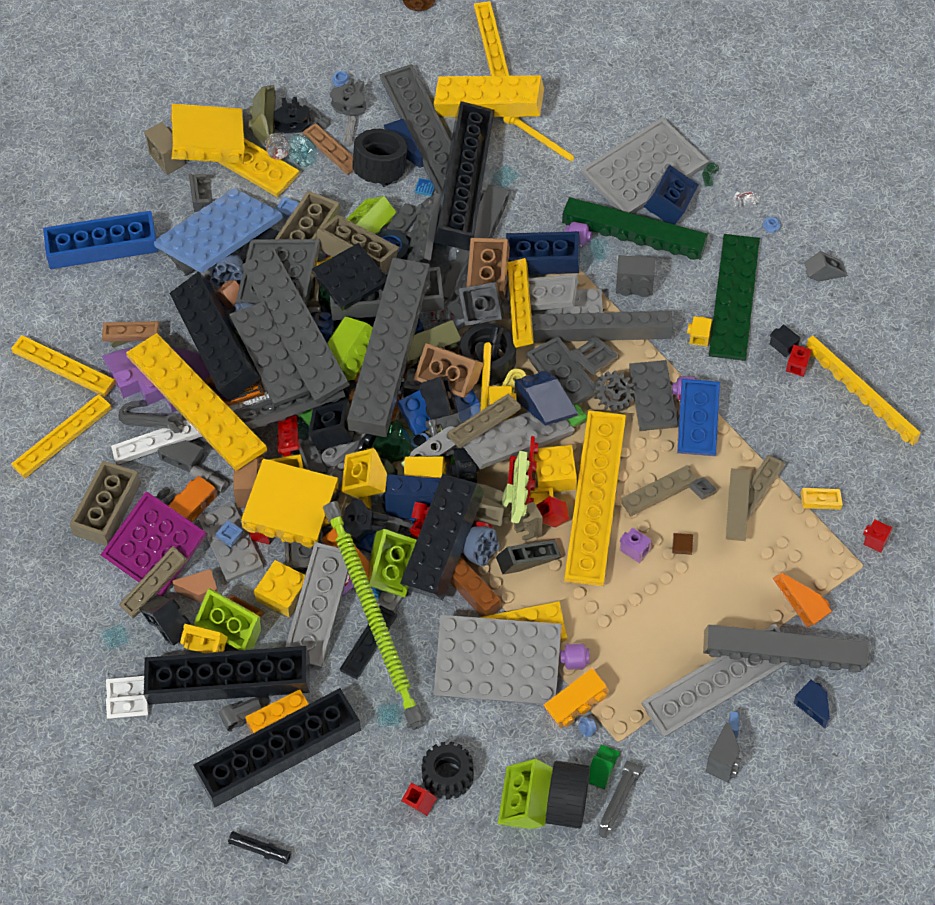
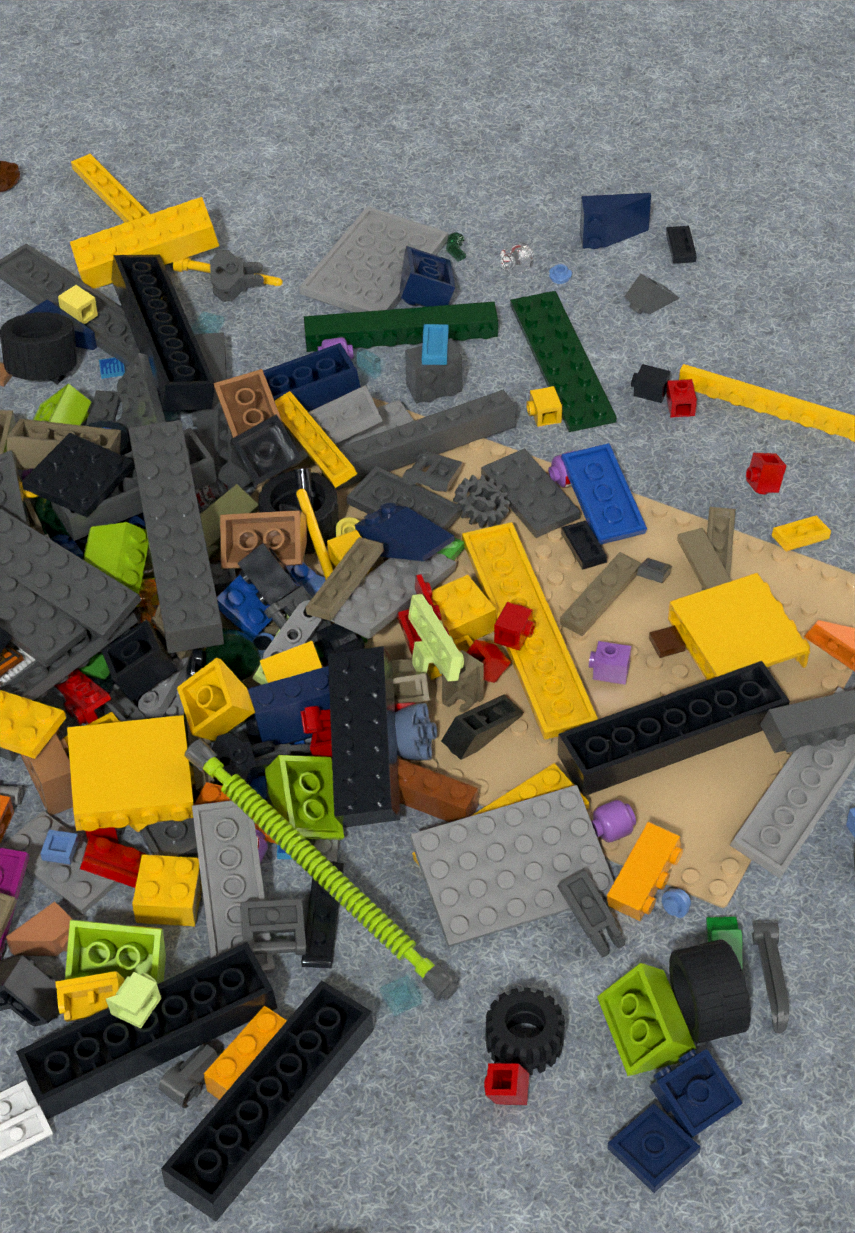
camera: 25 degrees left, 10 degrees down
(223, 655) = (135, 999): none -> yellowish green window
(256, 554) = (111, 860): none -> red plate
(330, 634) = (274, 917): none -> dark grey plate
(421, 131) = (78, 304): none -> light yellow brick
(486, 875) = (653, 1147): none -> dark blue plate
(528, 709) = (590, 911): none -> dark grey hinge
(529, 852) = (695, 1092): none -> dark blue plate
(536, 143) = (232, 275): none -> dark grey hinge
(582, 494) = (514, 626): none -> red brick
(639, 259) = (435, 344): none -> dark azure tile
(646, 608) = (669, 728): none -> black brick
(666, 450) = (584, 544): none -> black plate
(731, 555) = (736, 627): none -> yellow panel
(821, 443) = (765, 473): none -> red brick
(830, 194) = (613, 218): none -> dark blue slope
(872, 231) = (681, 244): none -> black plate

